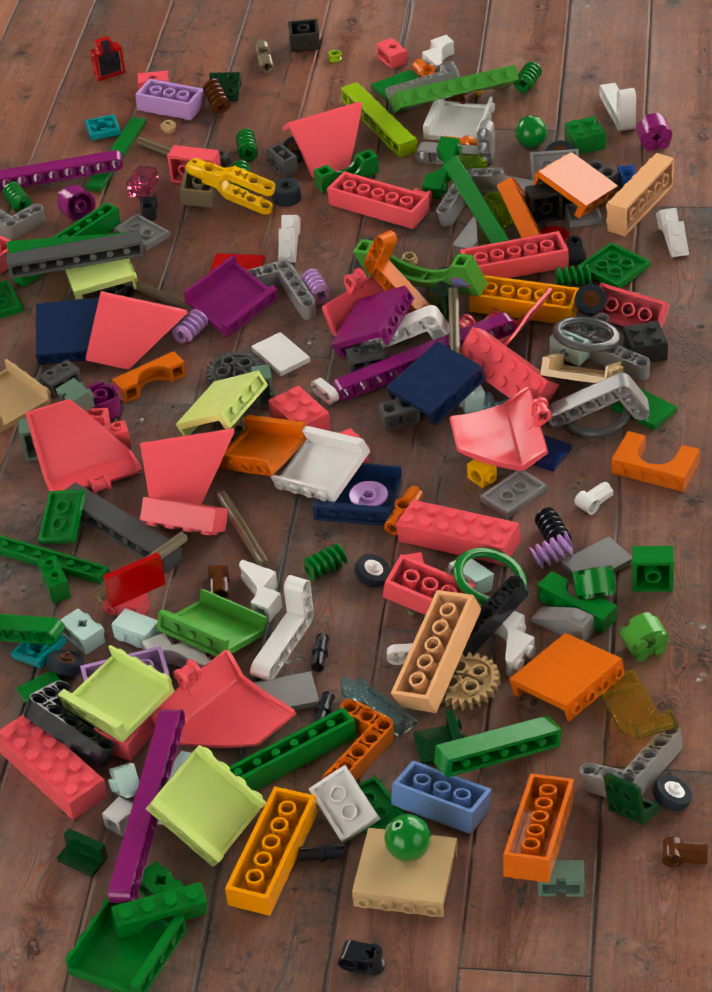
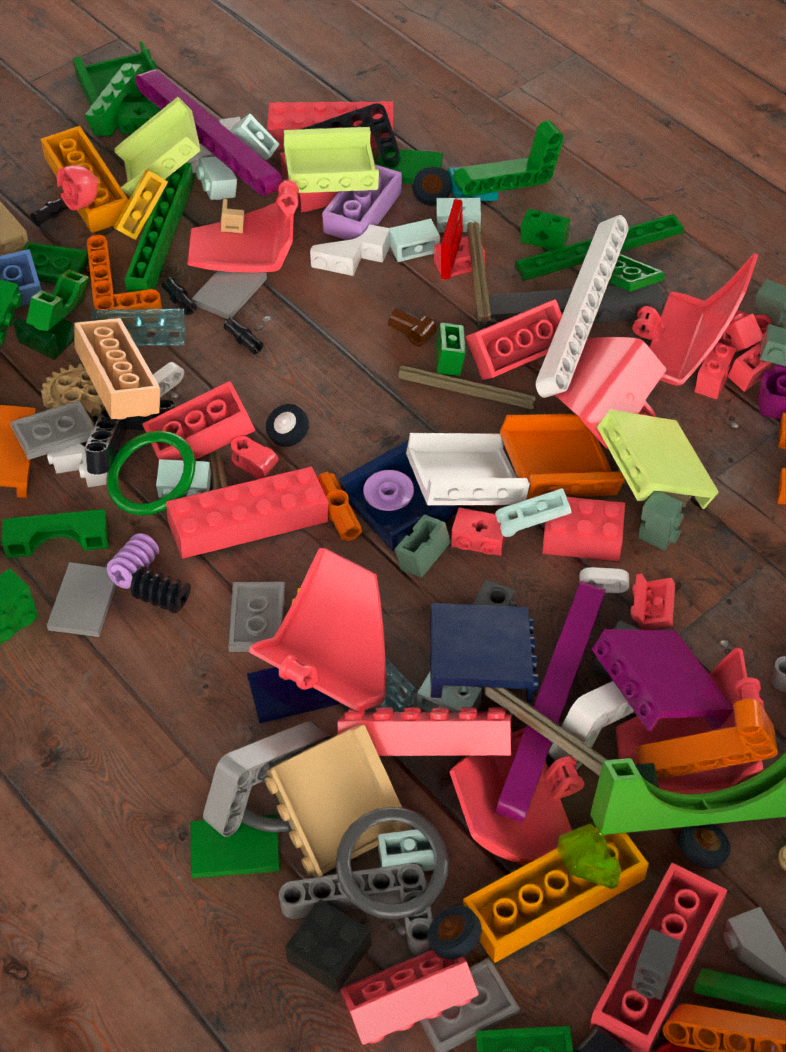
camera: 130 degrees right, 10 degrees up
(82, 853) = (229, 105): dark green panel -> none
(124, 496) = (582, 307): none -> white beam
(213, 624) = (351, 275): bright green panel -> none
(223, 733) = (231, 219): none -> tan panel
(225, 541) = (450, 349): none -> green brick
(226, 366) = (727, 530): dark grey gear -> none
(262, 584) = (373, 347): white arch -> none
(272, 772) = (140, 204): none -> yellow brick
(280, 354) = (724, 597): white tile -> none
(289, 630) = (290, 321): white beam -> none
(304, 797) = (78, 186): none -> coral cylinder
(318, 366) = (653, 603): none -> coral bracket
(322, 416) = (532, 512): none -> light aqua plate
(323, 560) = (340, 400): green piece -> none
(344, 804) = (66, 234): white tile -> none
(392, 453) = (423, 546): none -> sand green brick
(398, 752) = (49, 308): none -> green arch
(502, 282) = (588, 858): none -> clear neon green slope
(515, 648) = (53, 429): none -> light grey tile
(529, 231) = (655, 964): none -> dark grey brick
(565, 620) = (45, 501): light grey slope -> none
(572, 275) = (549, 994): green piece -> none
(591, 500) = (159, 660): white piece -> none
(593, 581) = (43, 561): green brick -> none
(672, 475) = (161, 737): orange arch -> none

